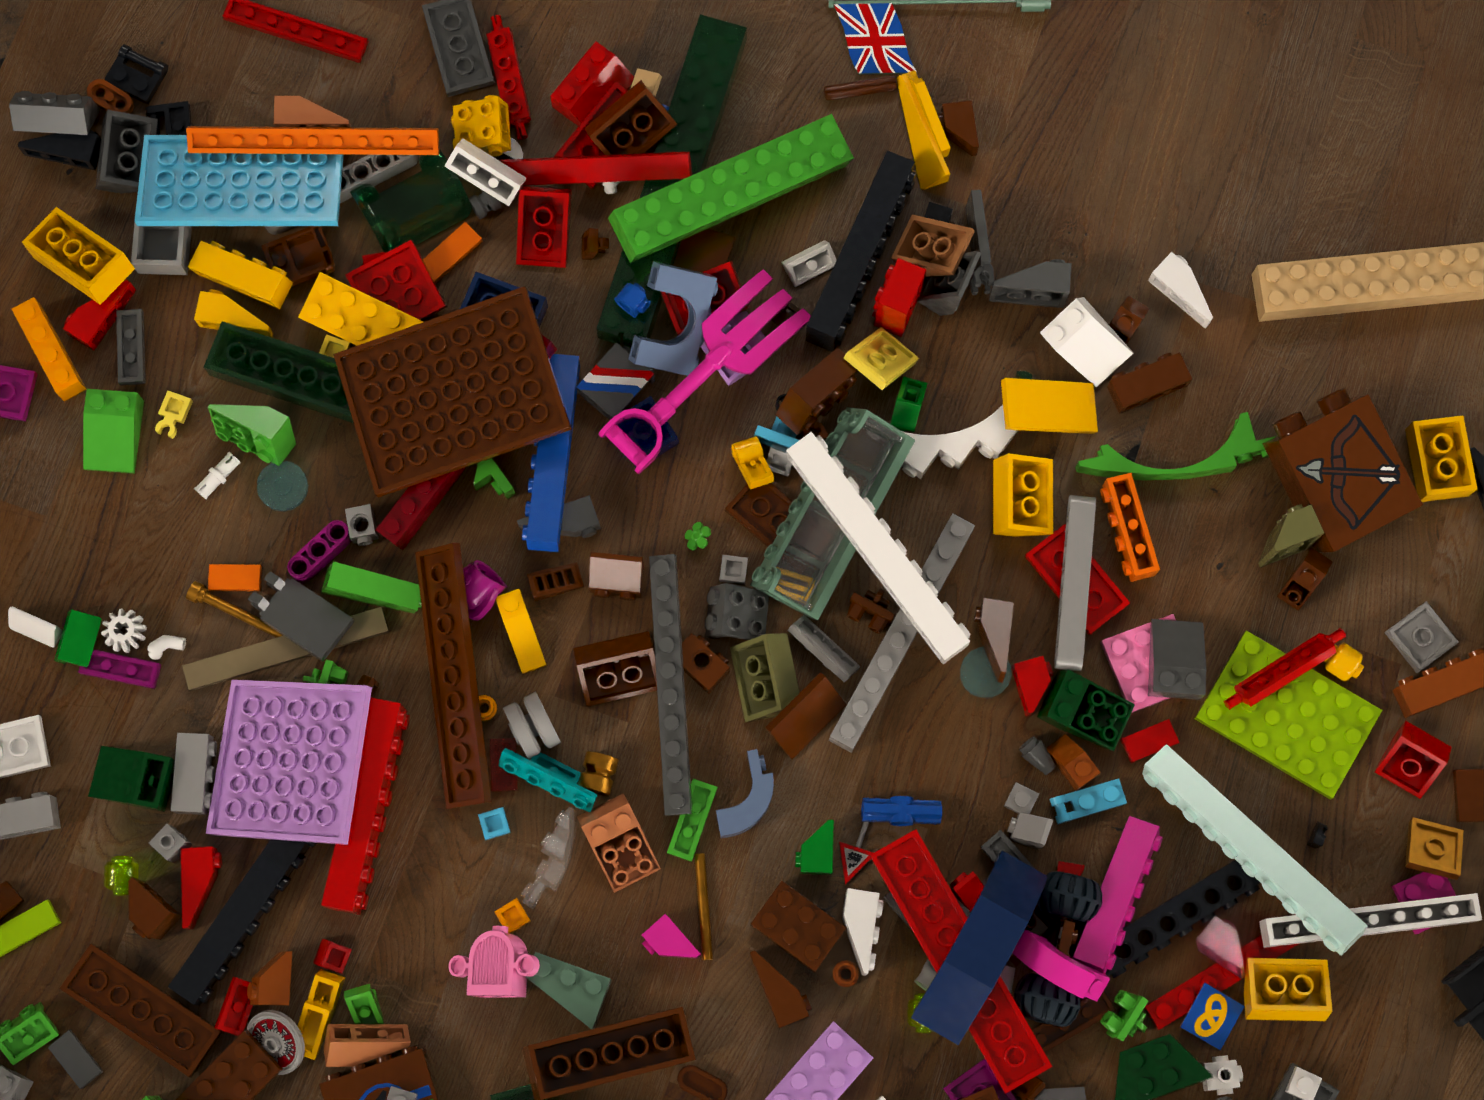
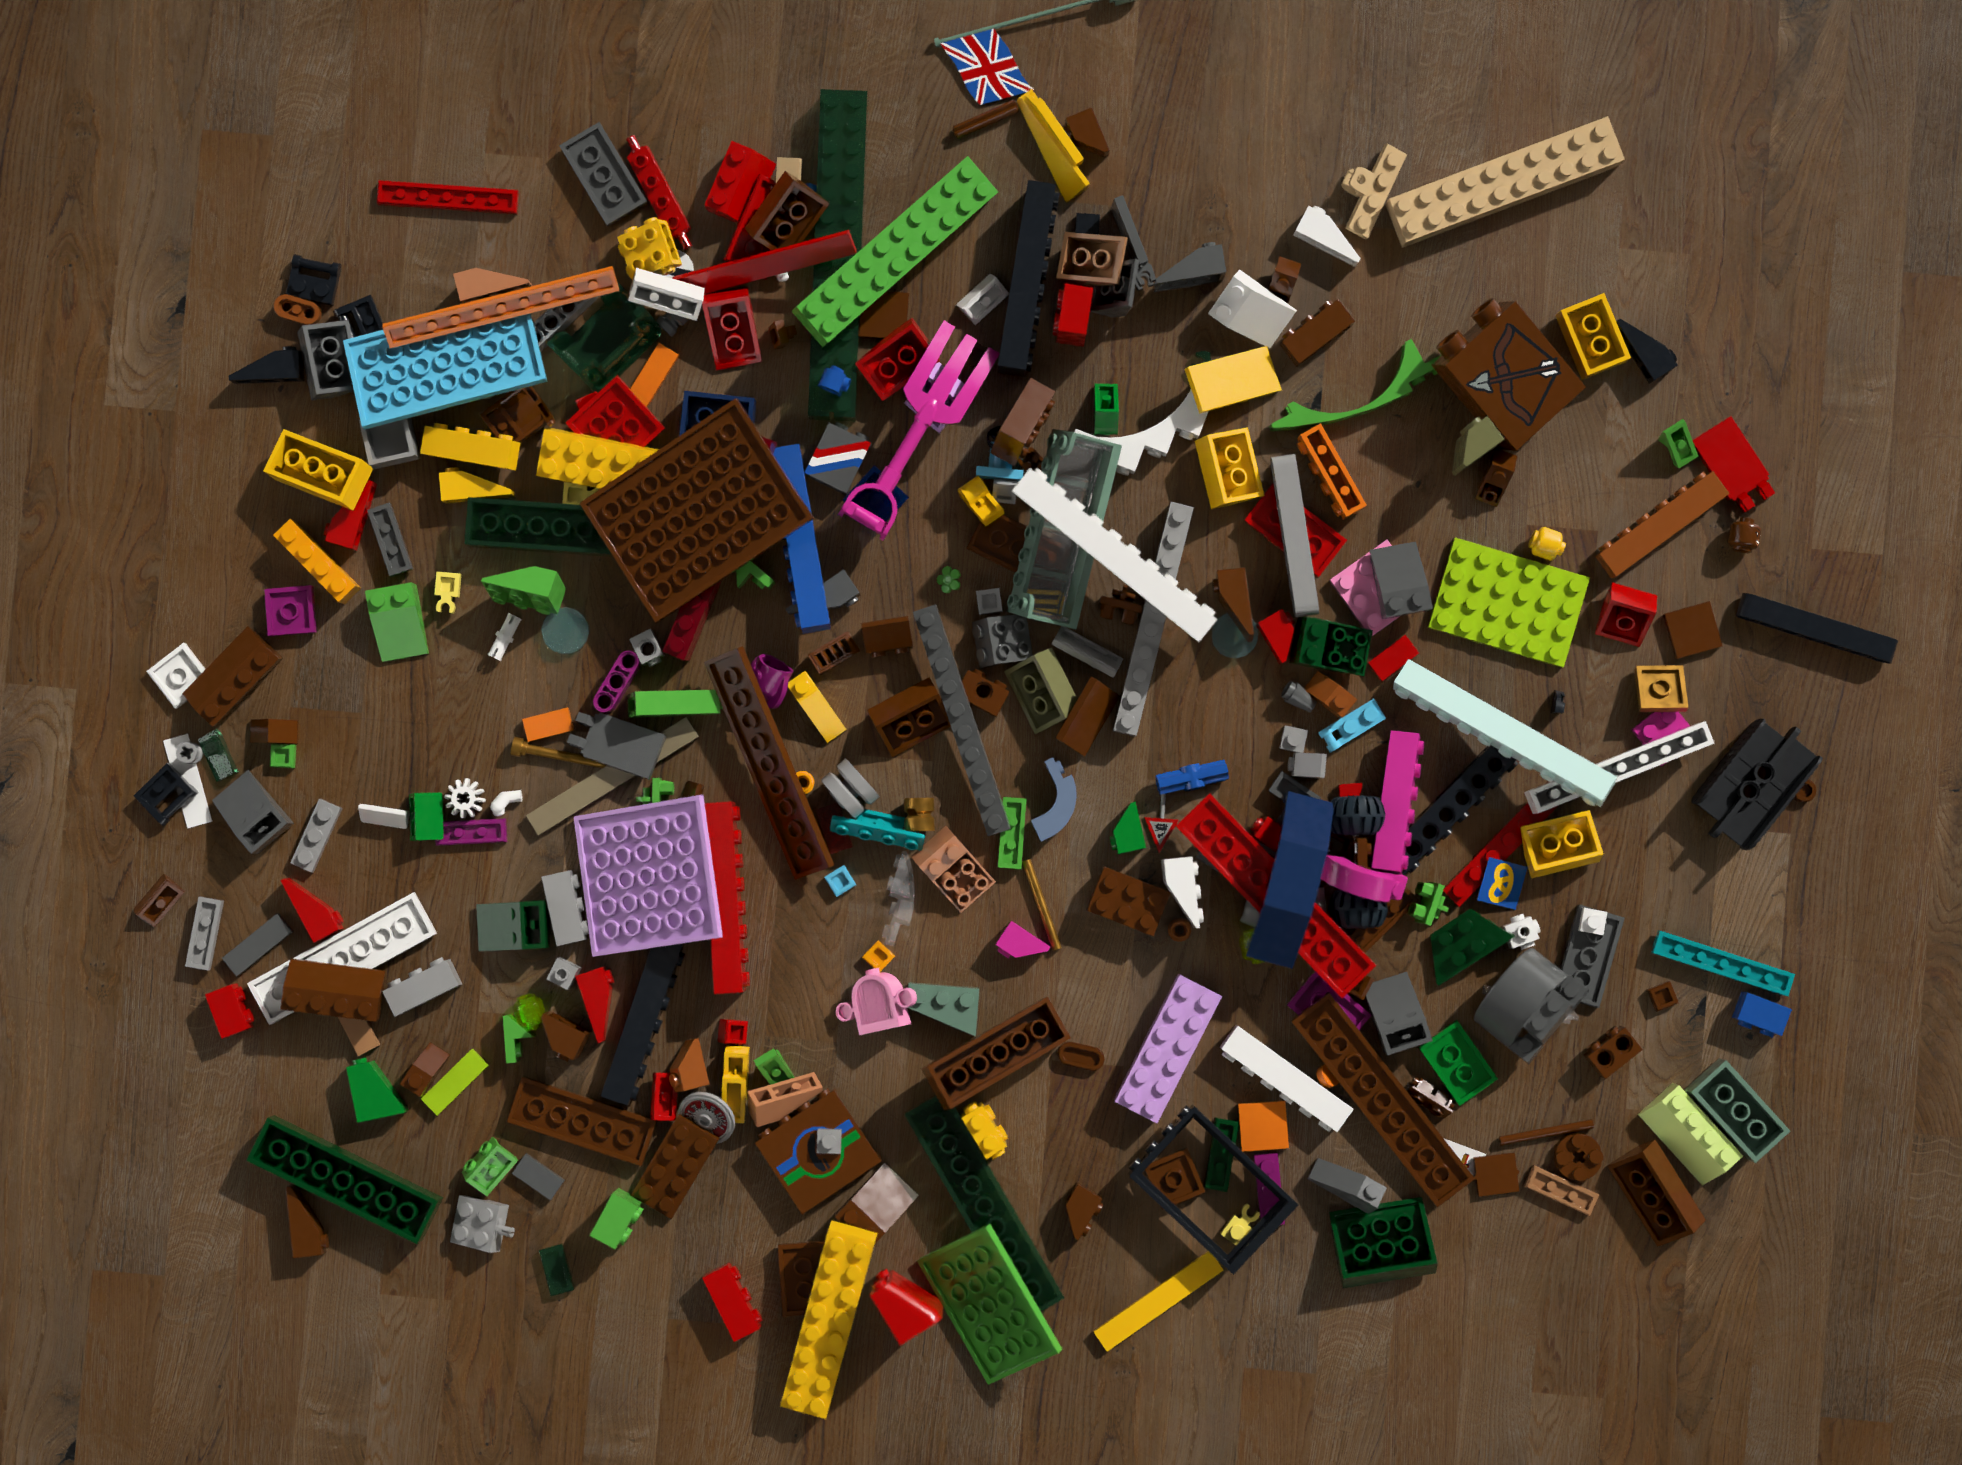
camera: 15 degrees left, 10 degrees up
(53, 113) = (252, 341): dark grey slope -> none
(94, 894) = (512, 1033): none -> bright green slope
(681, 352) = (890, 416): sand blue arch -> none
(783, 997) = (1130, 964): reddish brown slope -> none
(881, 358) = (1071, 375): light yellow tile -> none
(1222, 945) = (1497, 821): clear pink slope -> none
(1241, 254) = (1372, 189): none -> tan plate
(1285, 669) = (1497, 565): red plate -> none
(1421, 637) = (1610, 502): light grey tile -> none

